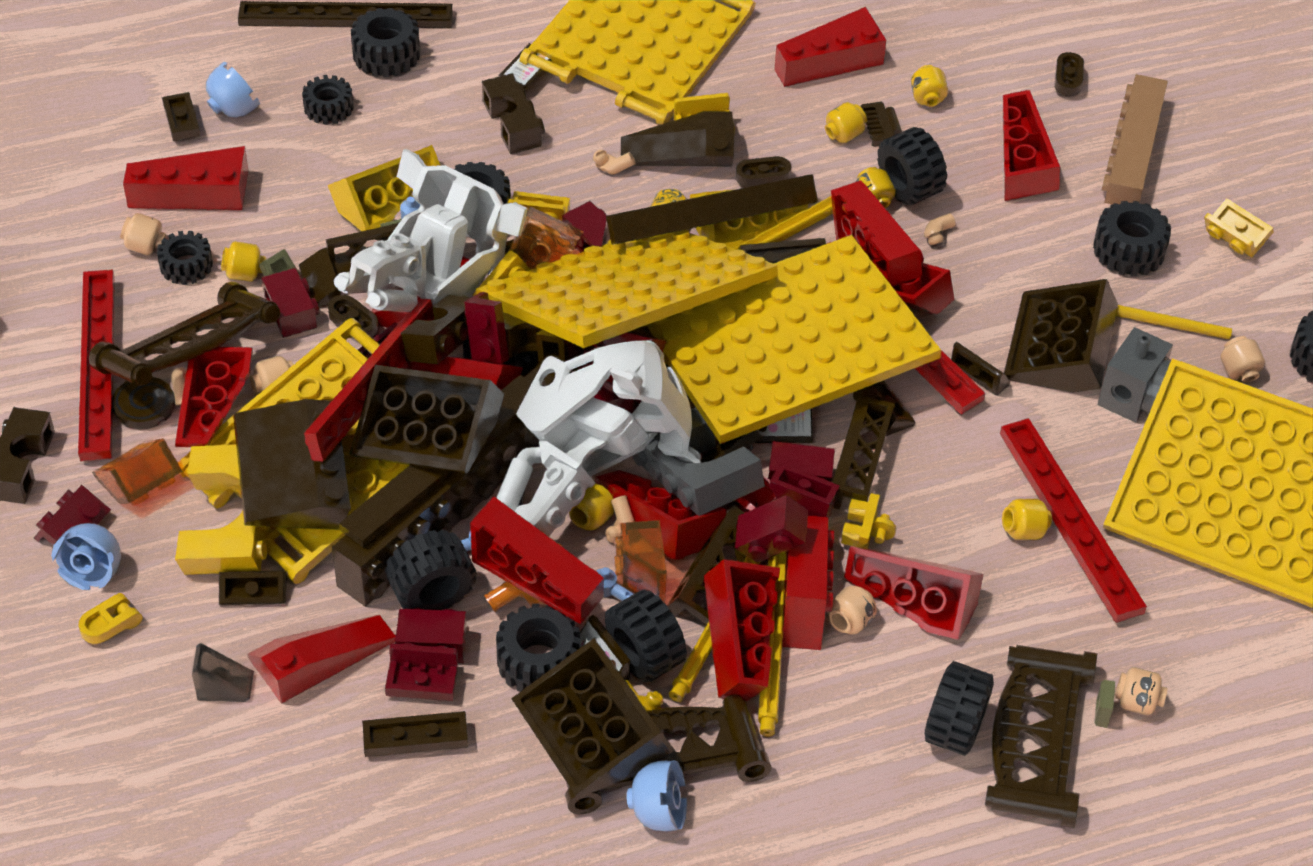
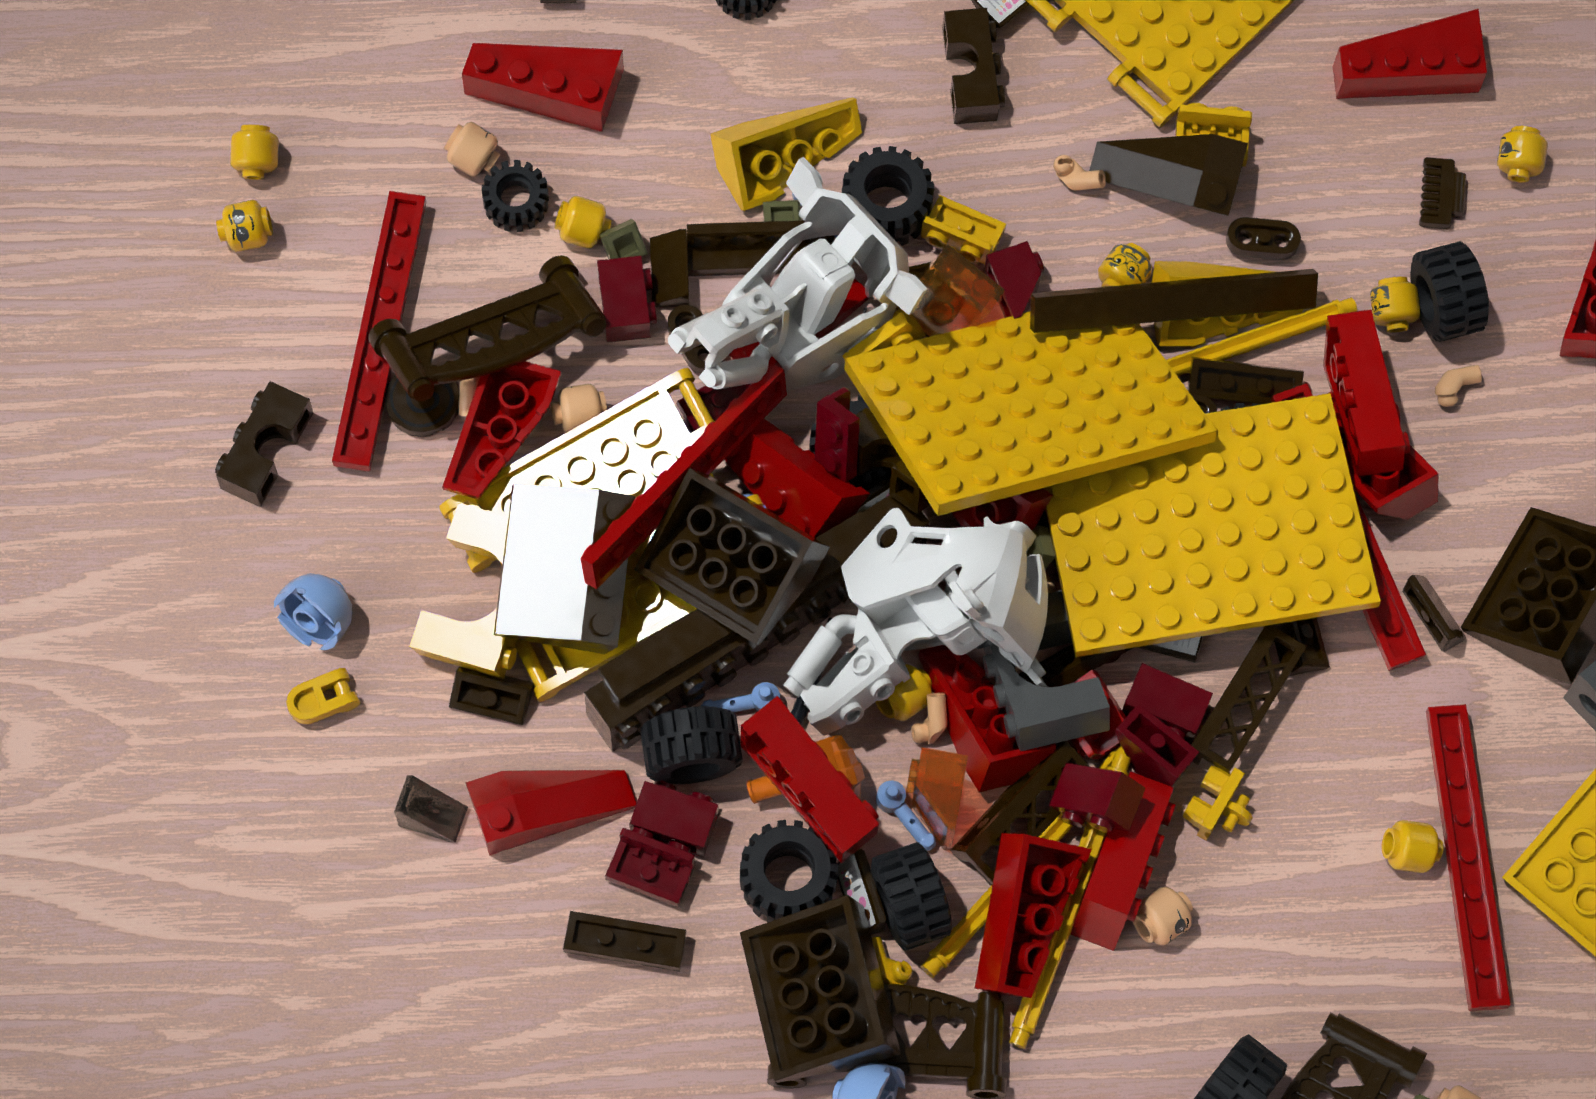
camera: 15 degrees right, 20 degrees up
(74, 510) = (309, 548): dark red bracket -> none
(139, 471) = (394, 502): clear orange slope -> none
(438, 338) = (772, 433): dark brown arch -> none
(845, 122) = (1392, 187): yellow head -> none
(926, 592) = (1260, 912): red wedge -> none

